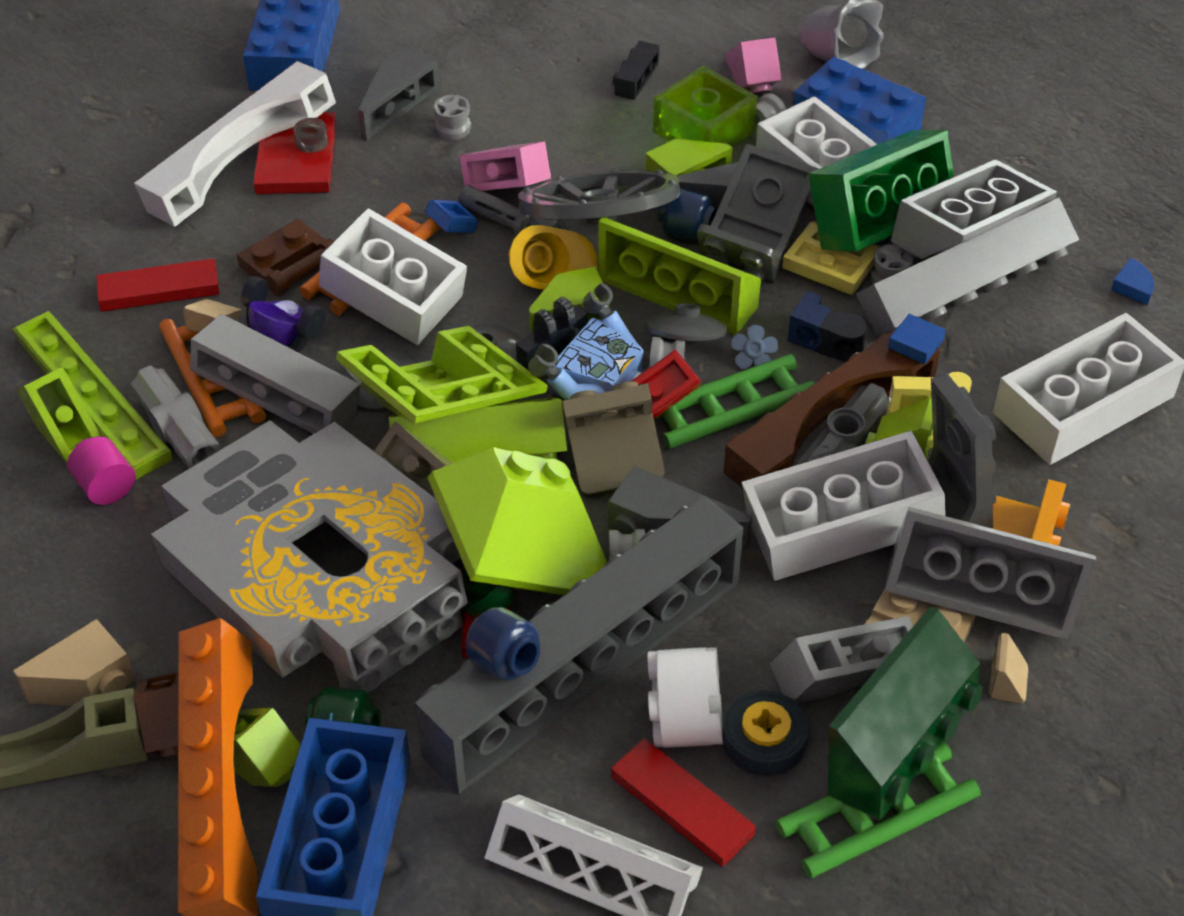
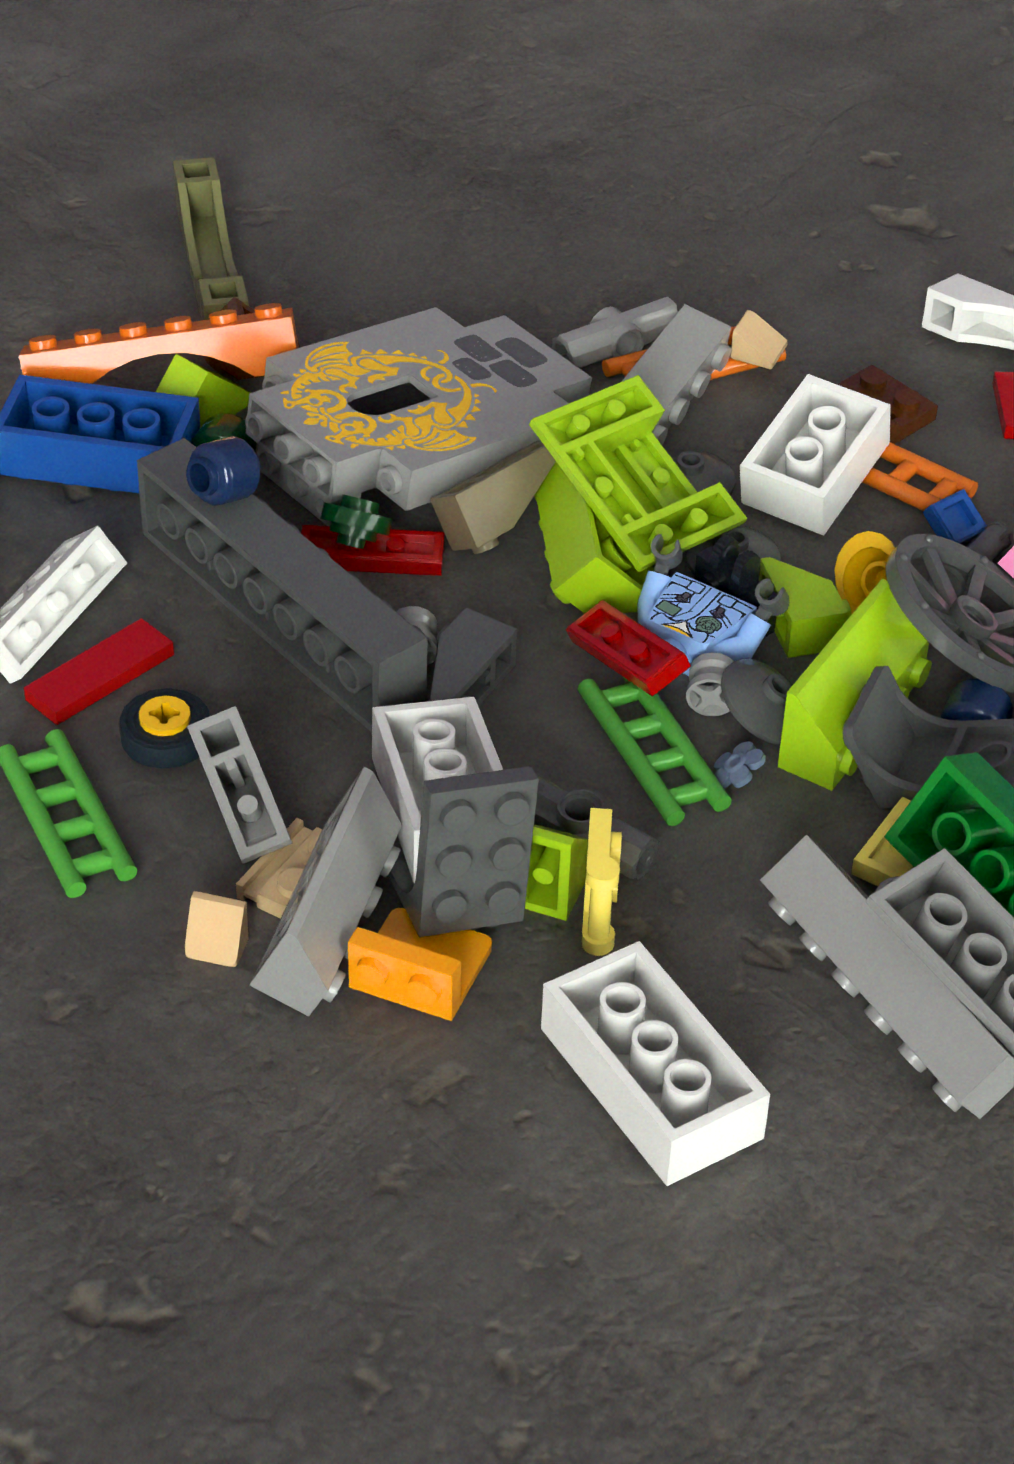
camera: 90 degrees right, 5 degrees down
(58, 411) = (620, 262): lime slope -> none
(76, 668) = (311, 295): tan slope -> none
(101, 470) = (540, 290): dark pink piece -> none
(111, 413) = (678, 281): lime tile -> none
(157, 284) = (824, 320): red tile -> none
(281, 319) = (749, 382): cap -> none
(518, 521) = (415, 525): lime slope -> none
(612, 435) = (568, 623): dark tan bracket -> none
(685, 697) = (200, 649): white brick -> none
(779, 434) = (704, 883): reddish brown arch -> none
(826, 329) = (772, 827): leg -> none
(902, 716) = (145, 798): dark green slope -> none
(916, 338) = (719, 877): blue tile -> none
(1134, 282) = (904, 1184): blue tile -> none

